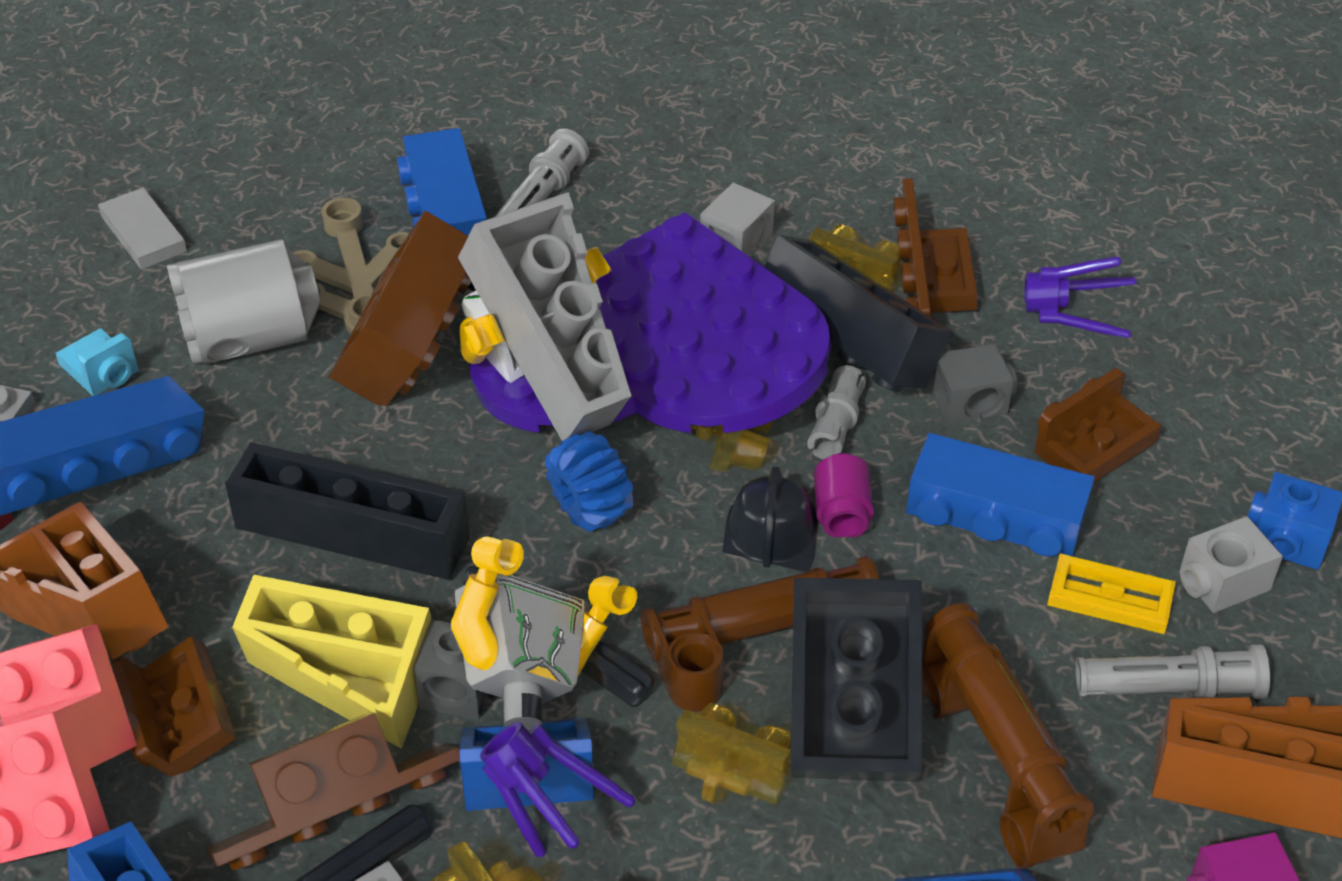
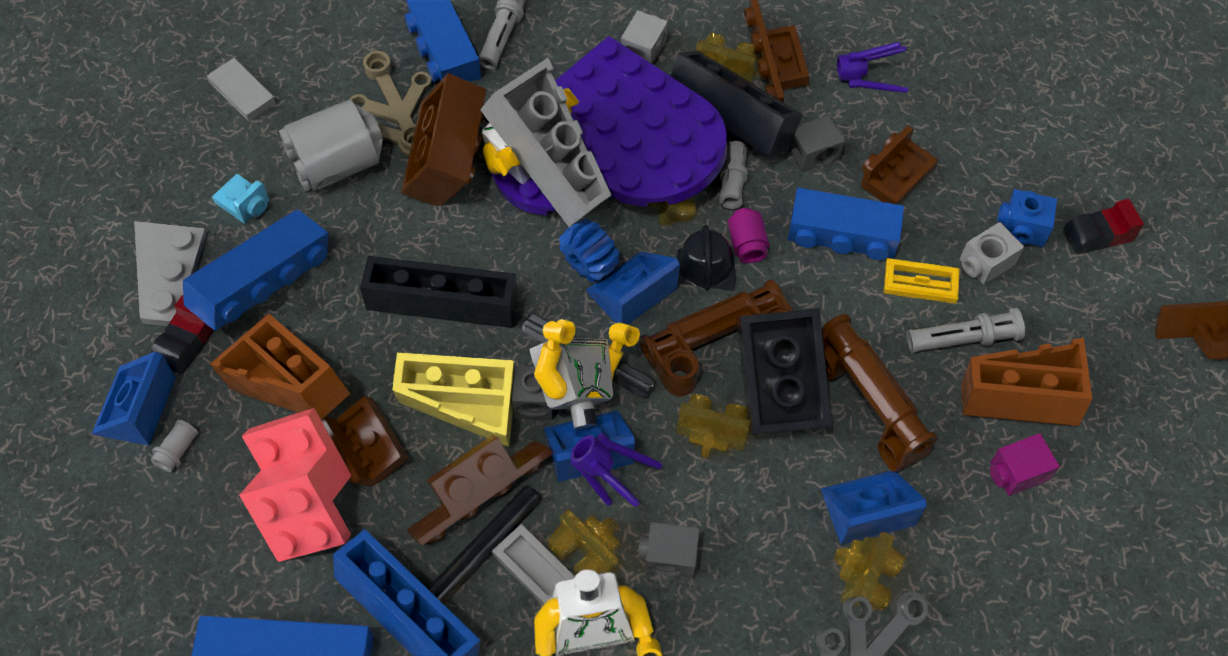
camera: 10 degrees left, 15 degrees up
(657, 544) = (636, 286): none -> blue slope

